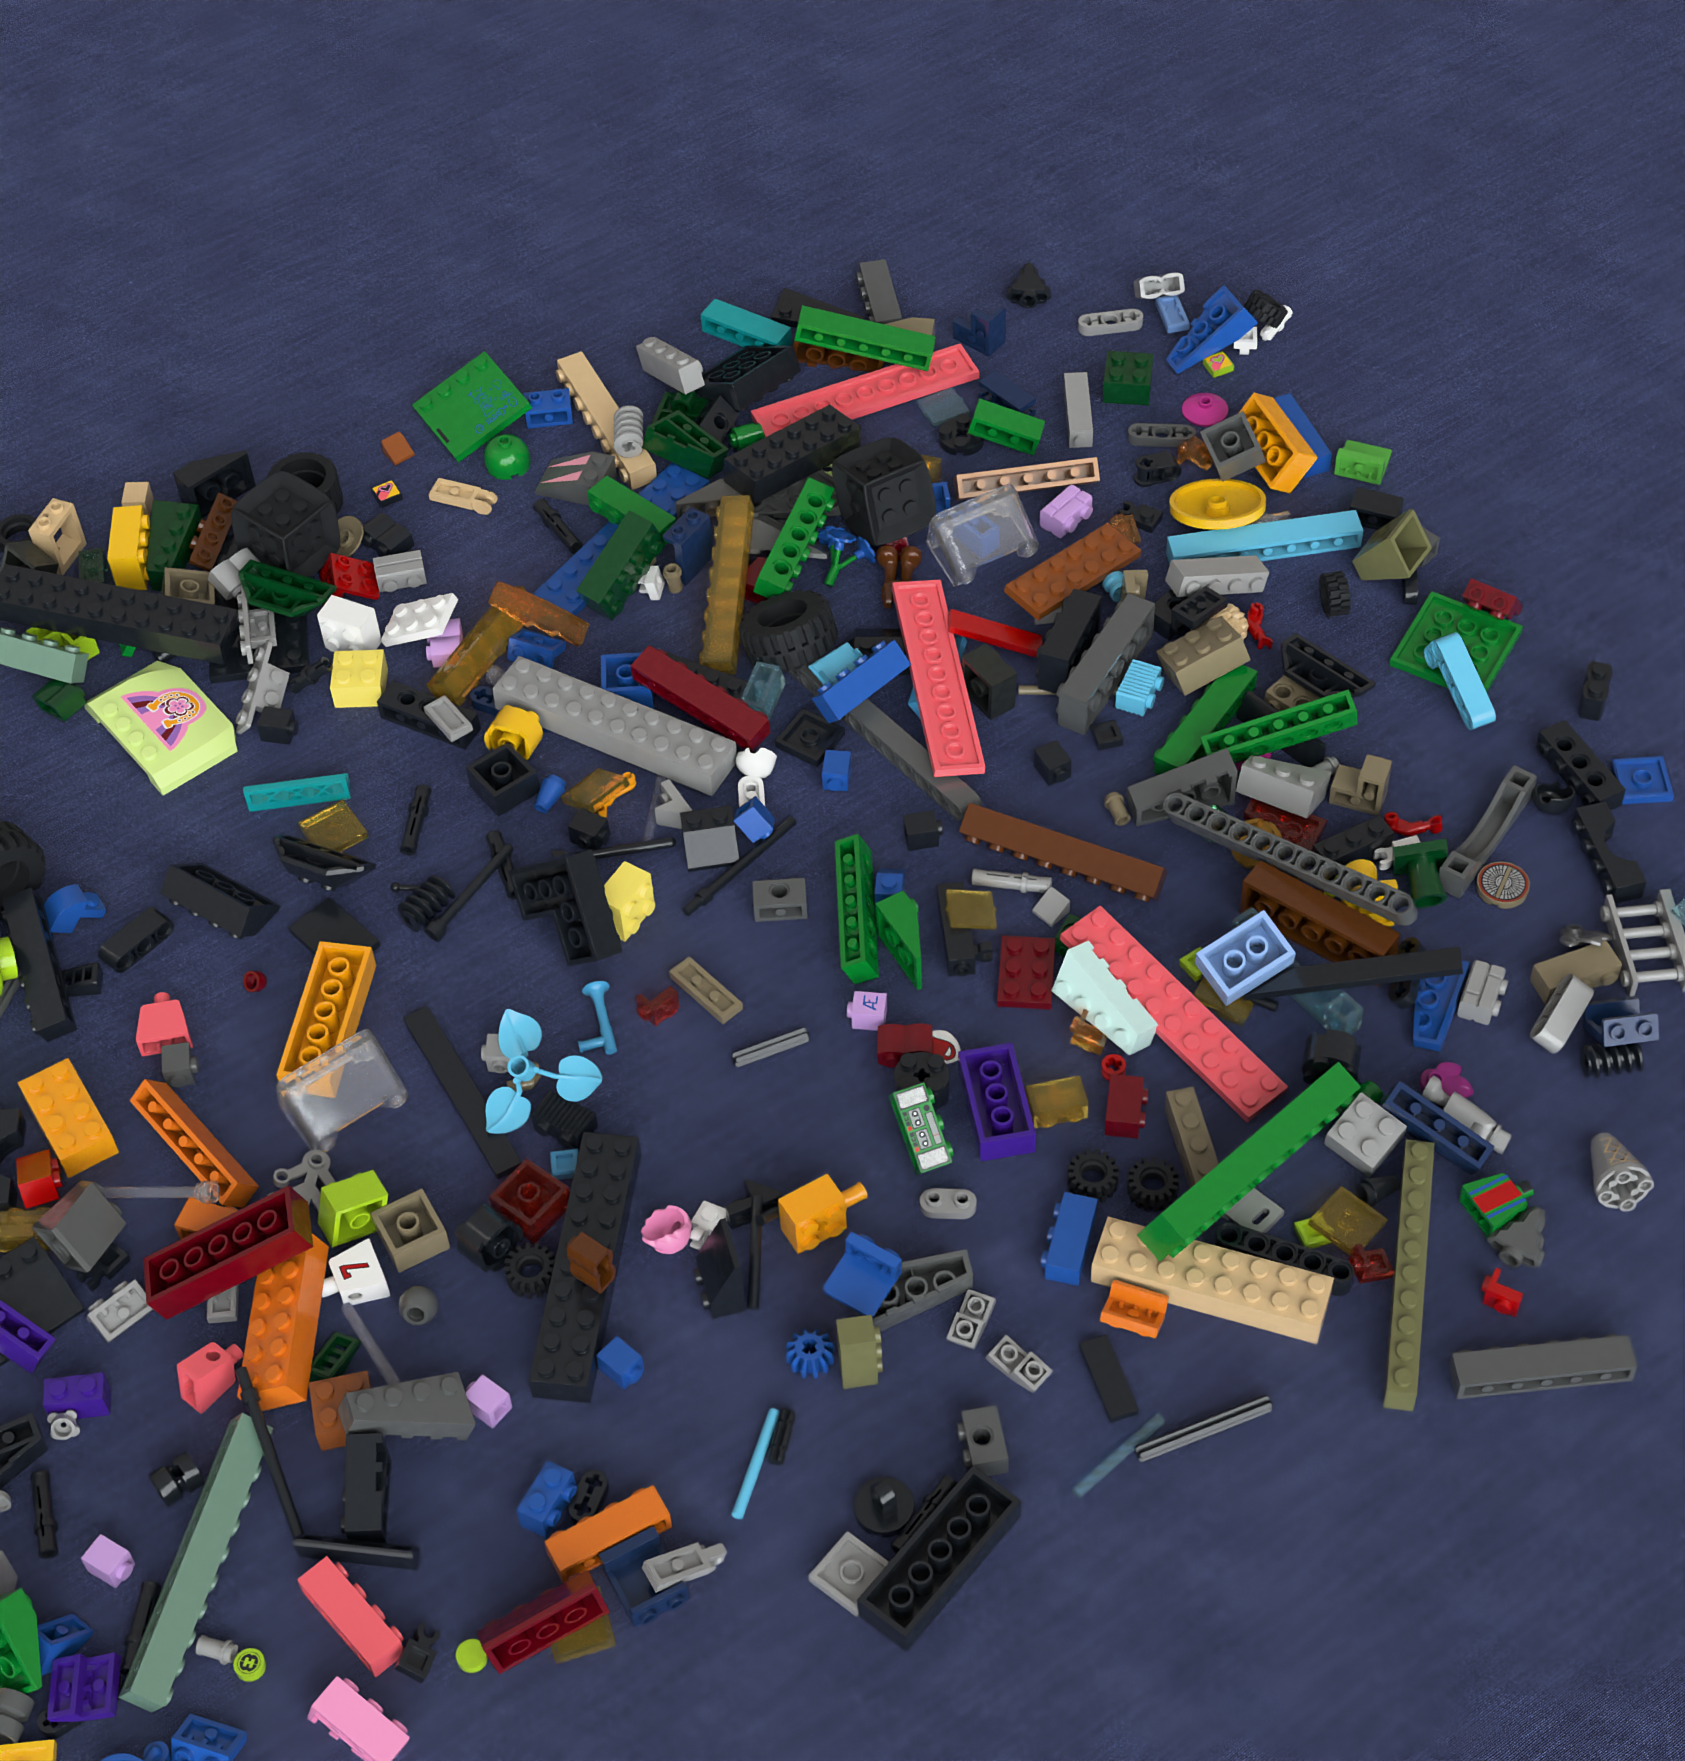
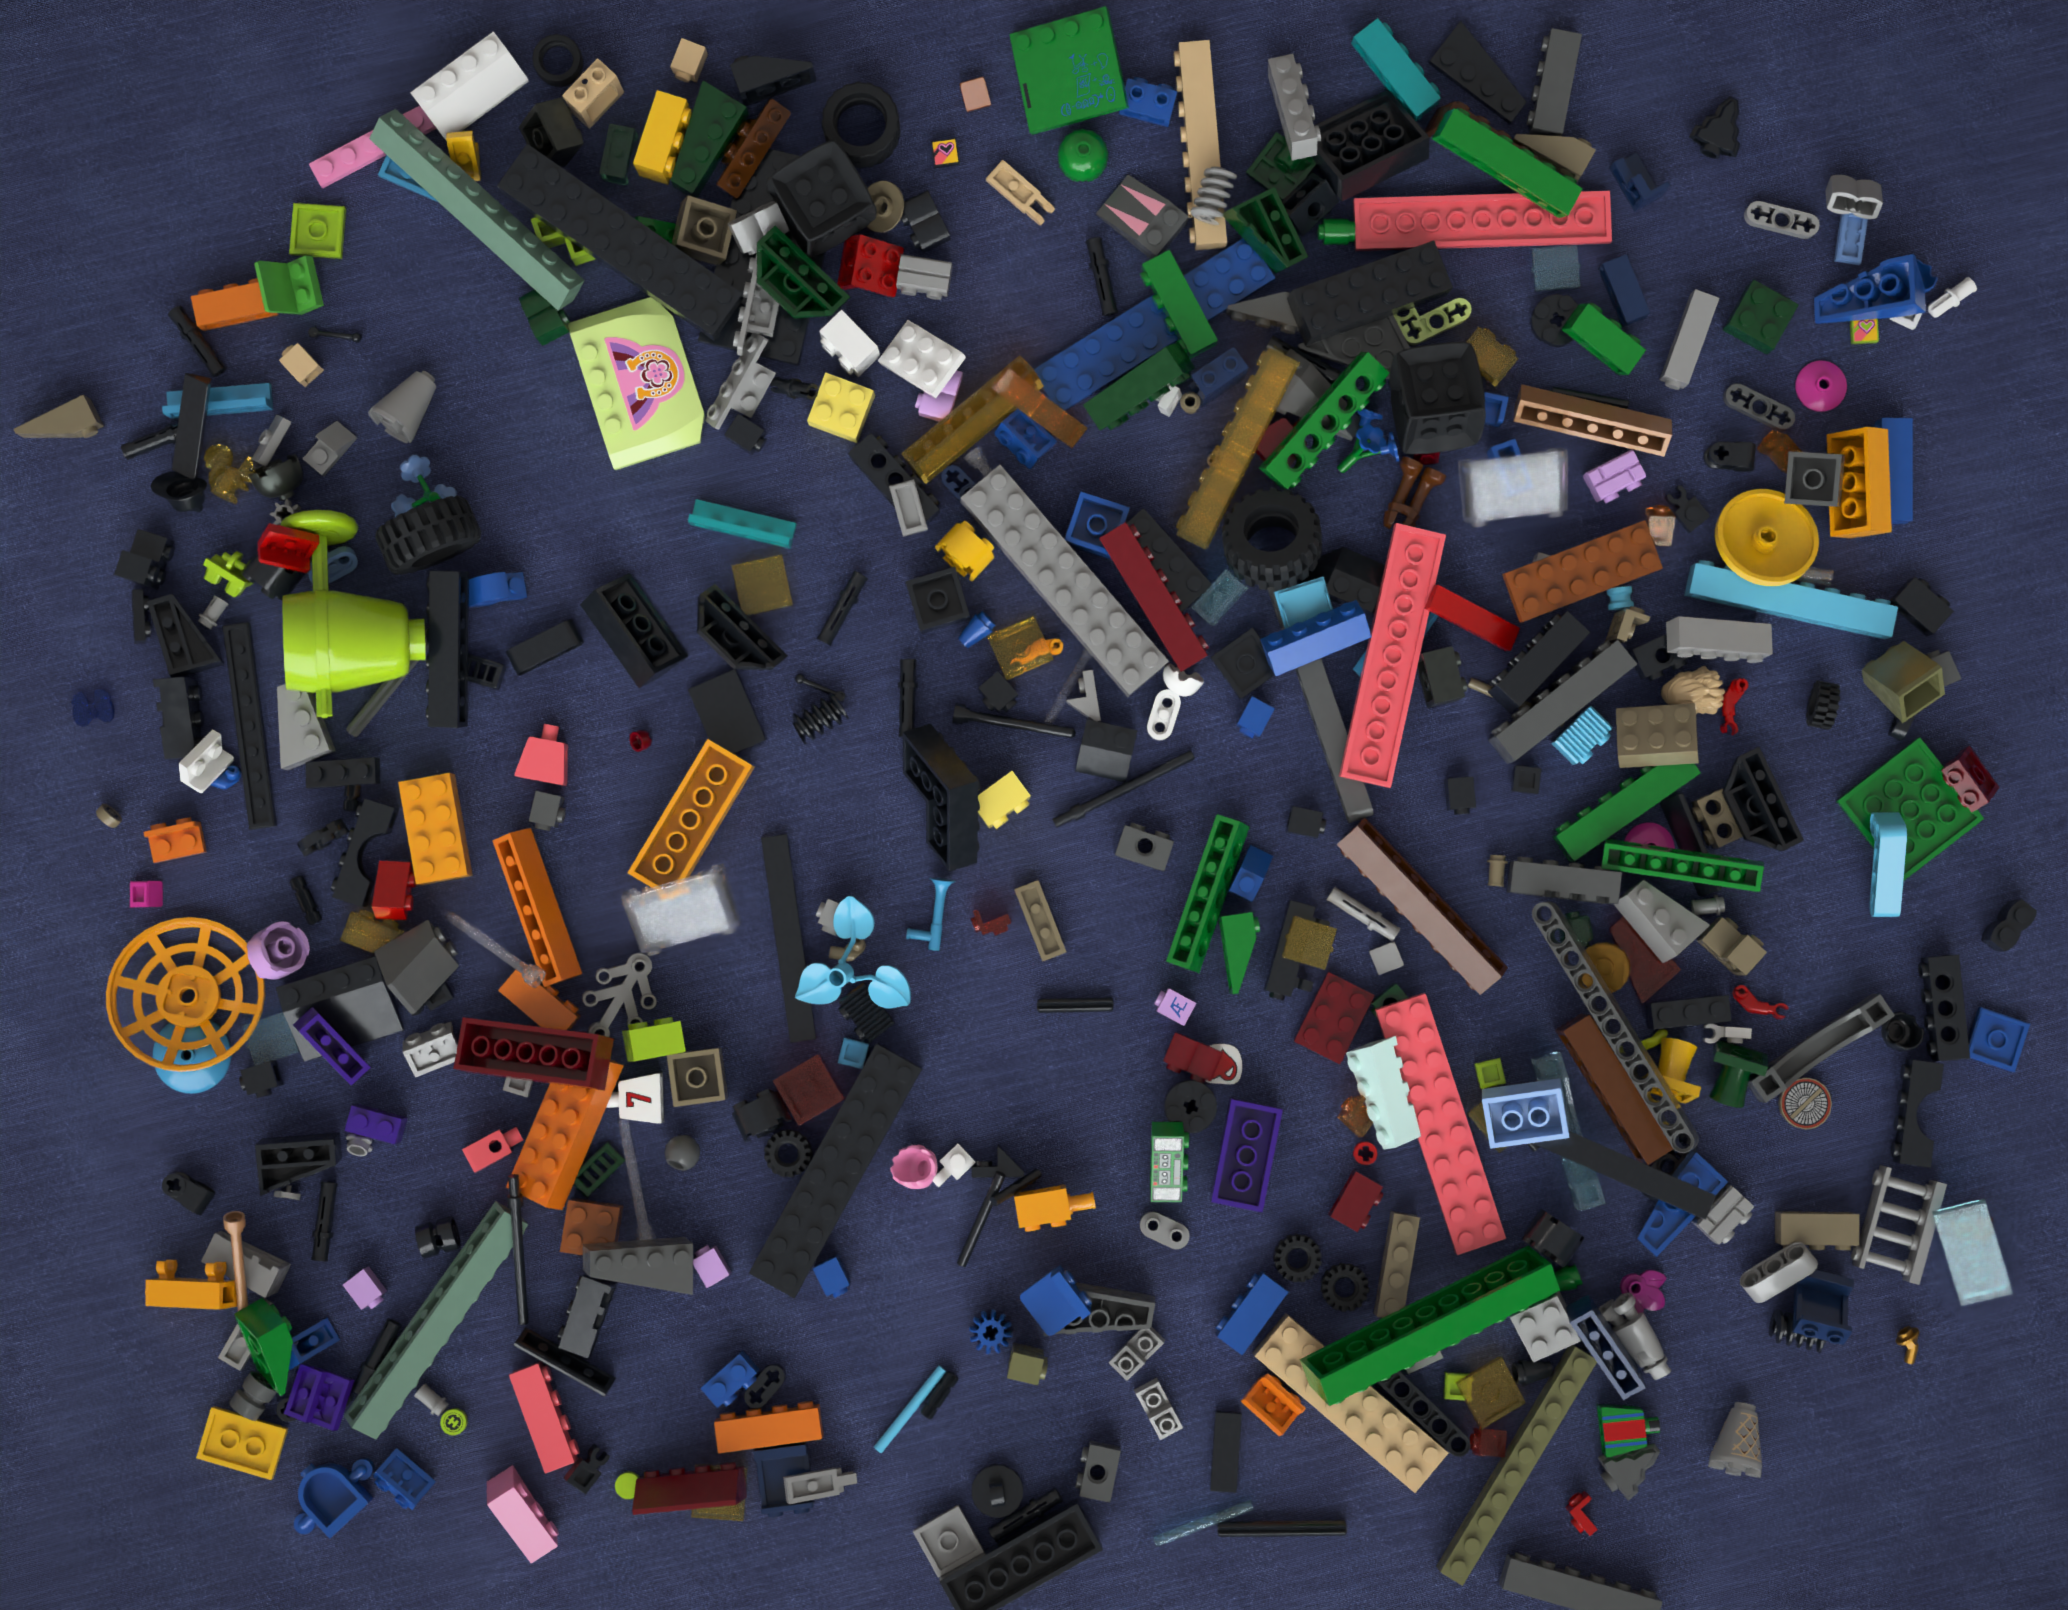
camera: 15 degrees right, 35 degrees up
(437, 928) = (822, 748): black piece -> none
(590, 1262) = (832, 1200): reddish brown brick -> none
(720, 1274) = (941, 1235): black slope -> none
(754, 820) = (1153, 751): brick -> none
(1057, 1102) = (1299, 1172): clear yellow brick -> none
(1198, 608) = (1678, 682): black bracket -> none
(1265, 308) = (1944, 294): black tyre -> none
(1362, 462) = (1943, 533): bright green bracket -> none
(1575, 935) = (1844, 1199): flat silver plate -> none

